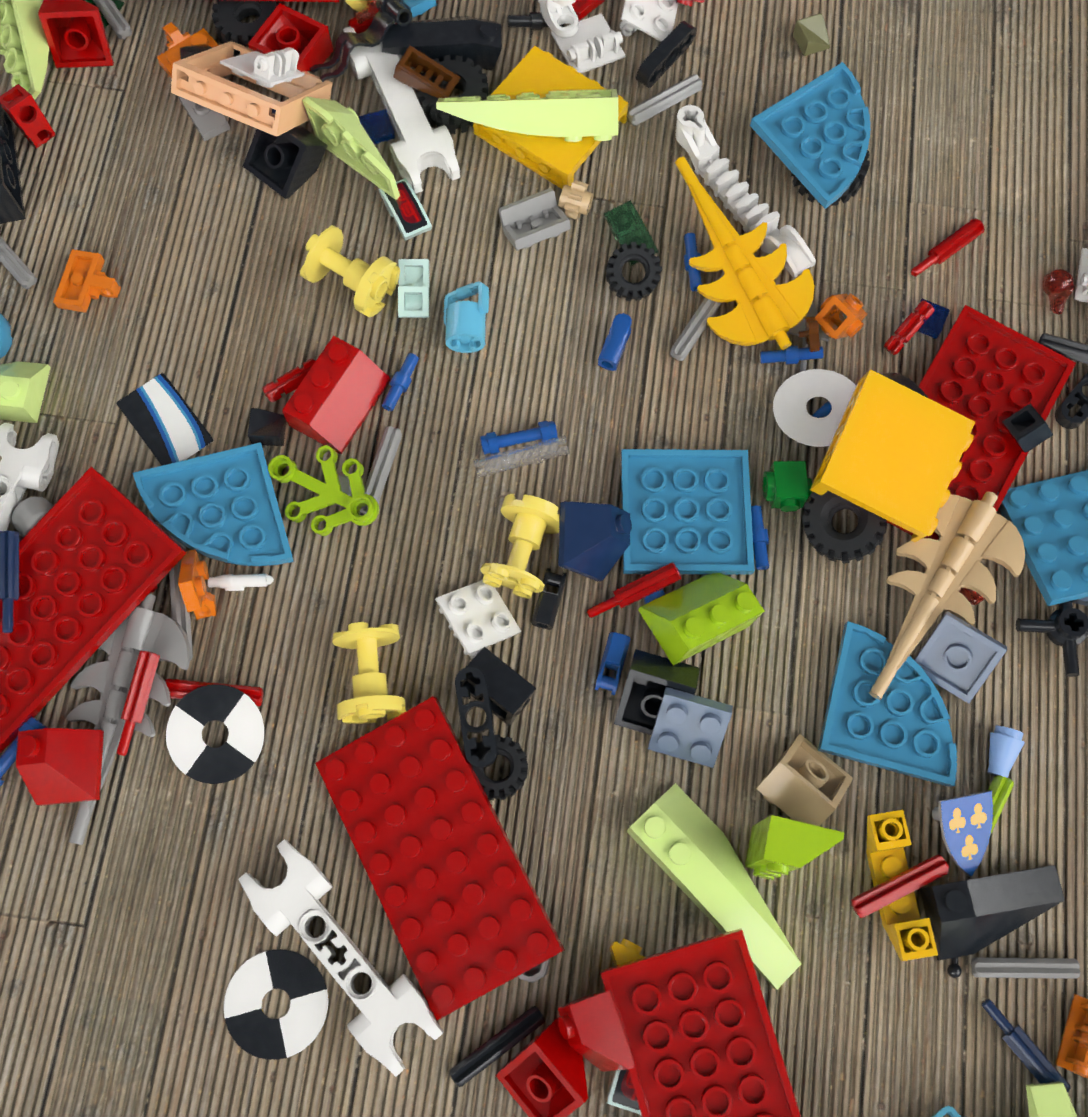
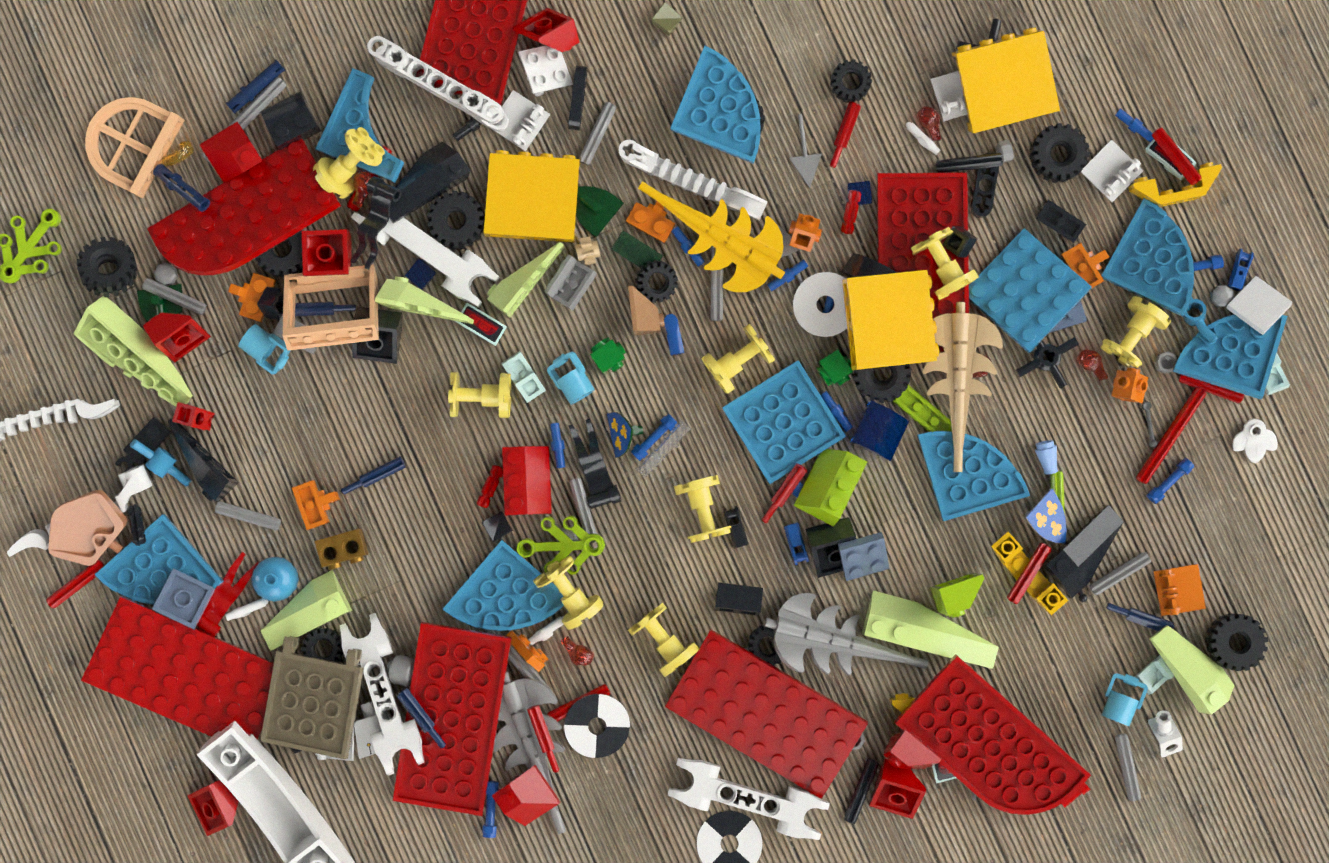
camera: 30 degrees left, 15 degrees up
(77, 338) = (340, 543): none -> pearl gold brick
(154, 97) = (260, 345): none -> medium azure piece
(164, 421) = (429, 560): sticker -> none
(176, 294) = (376, 475): none -> dark blue axle
(255, 631) = (578, 653): none -> clear red animal
(266, 68) = (331, 291): white hinge -> none
(292, 555) = (573, 598): none -> light yellow piece
(421, 62) = (417, 217): reddish brown slope -> none
(425, 435) = (595, 470): none -> black flag
(464, 693) = (747, 644): black beam -> none
(477, 617) = (702, 565): white hinge -> none
(479, 191) = (515, 288): none -> yellowish green wedge
(483, 406) = (621, 432): none -> blue shield
(524, 318) = (608, 355): none -> green brick
(546, 769) = (798, 631): none -> light grey animal
(557, 115) = (541, 203): yellowish green wedge -> none
(592, 537) = (740, 478): dark blue slope -> none
(594, 293) = (644, 314): none -> medium nougat slope
(613, 170) = (596, 208): none -> dark green shield
(663, 403) = (730, 363): none -> light yellow piece
(668, 214) = (651, 221): none -> orange hinge
(800, 589) = (879, 430): none -> clear blue slope
(805, 783) = (946, 546): tan slope -> none
(811, 334) = (793, 258): reddish brown piece -> none
(867, 598) = (922, 411): none -> lime tile
(882, 258) = (805, 164): none -> light grey piece
(959, 656) = (993, 417): sand blue plate -> none
(992, 186) = (857, 69): none -> black tyre
(1000, 457) = (948, 271): none -> light yellow piece
(1041, 308) = (923, 139): none -> white piece

